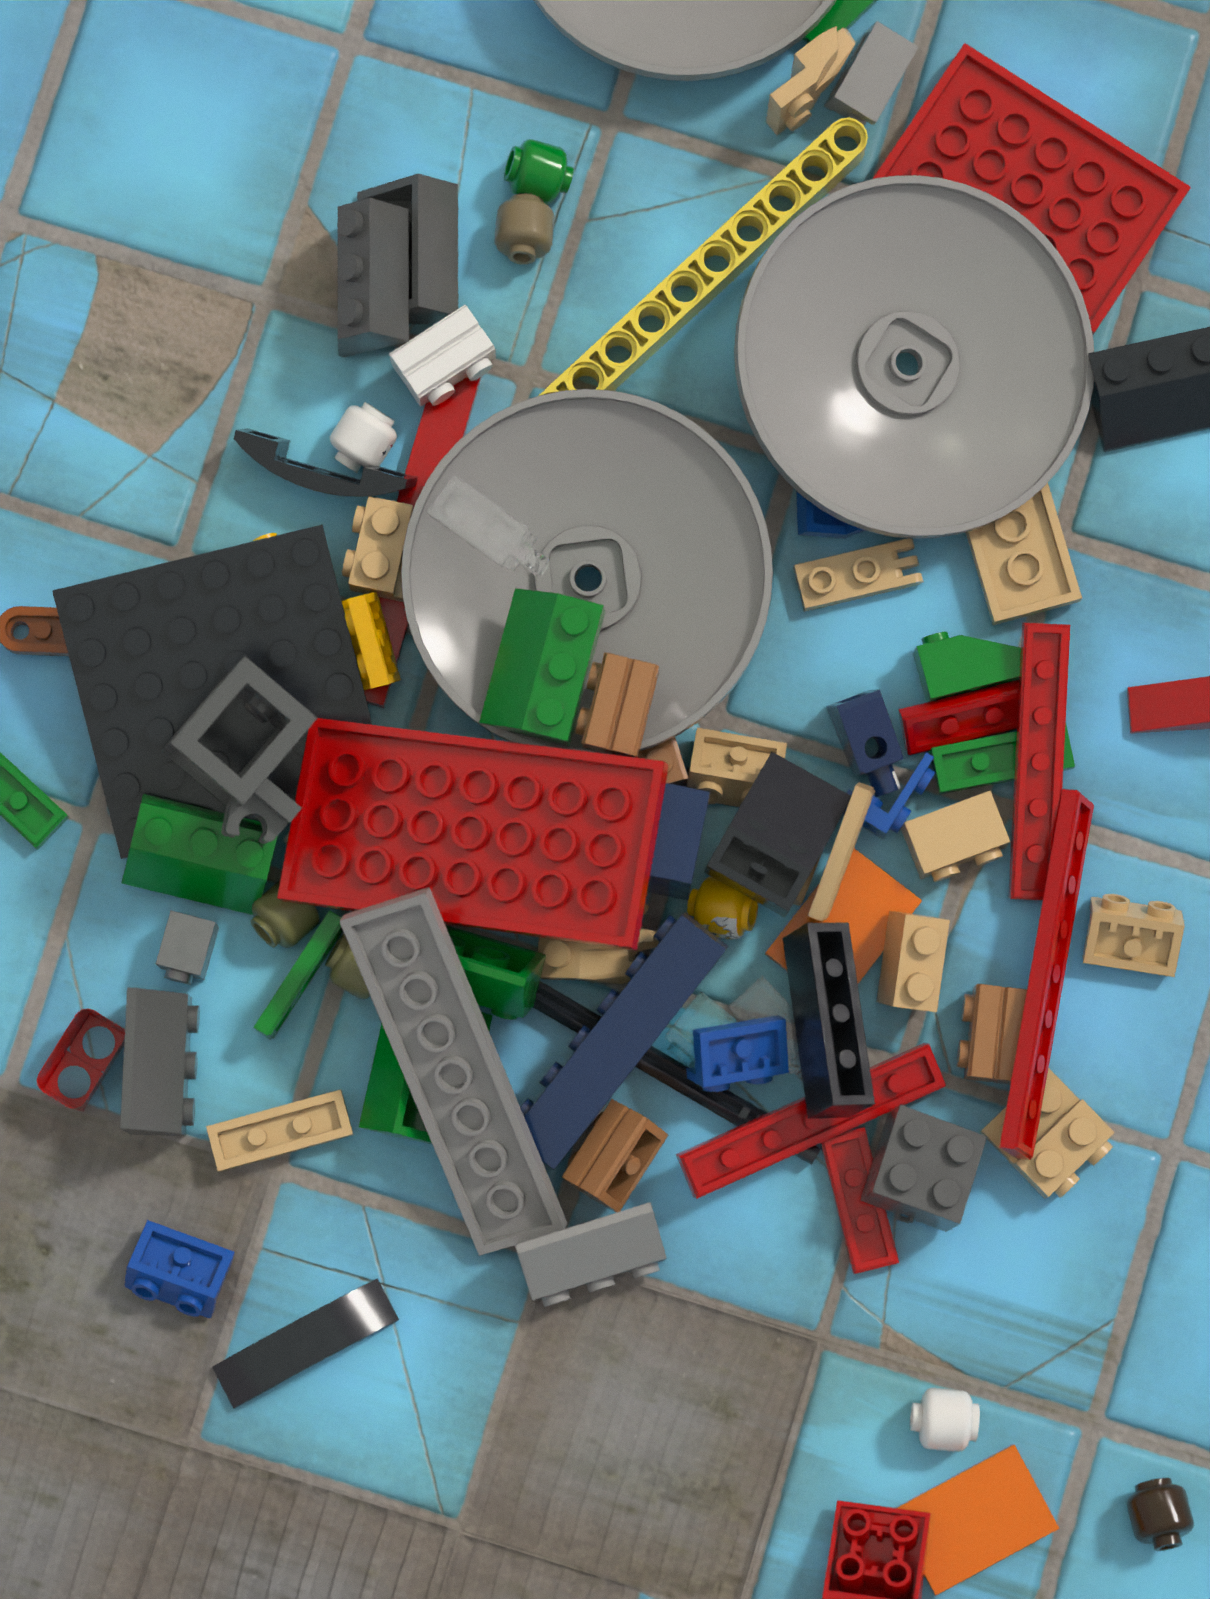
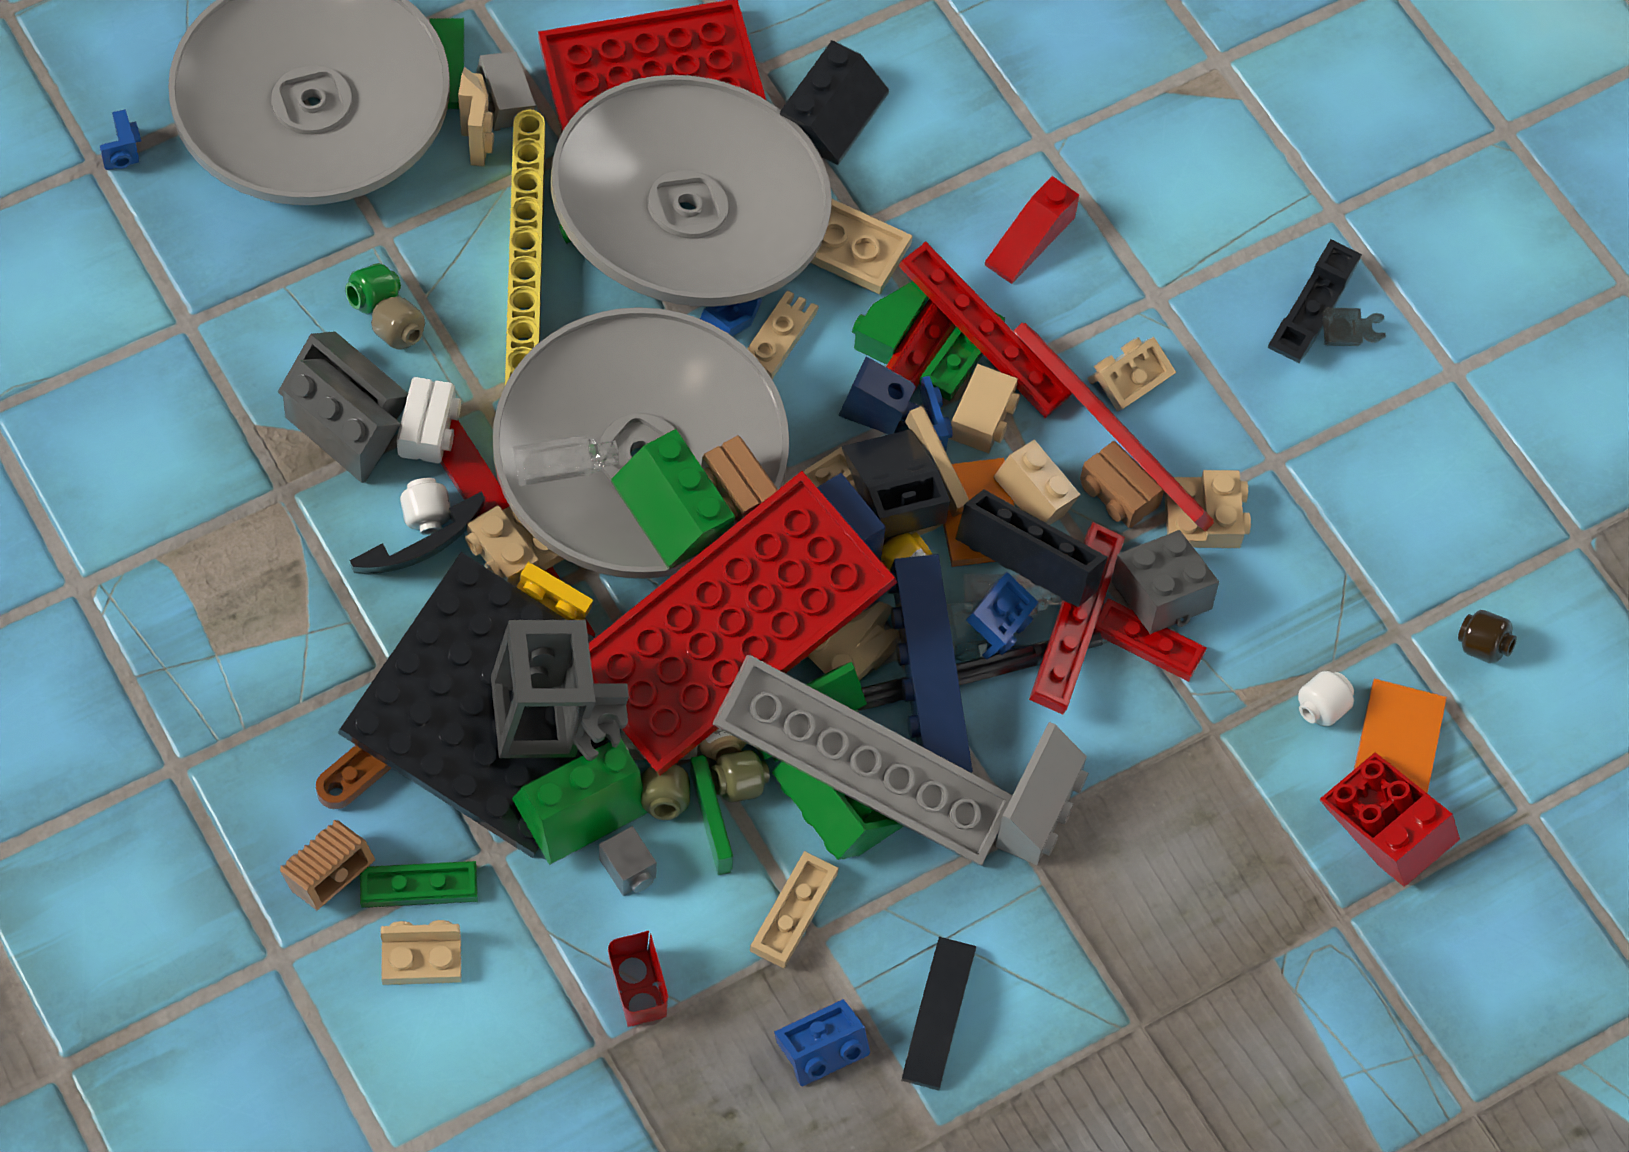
camera: 50 degrees left, 20 degrees down
(158, 1063) = (684, 937): dark grey slope -> none
(614, 1155) = (996, 736): medium nougat brick -> none

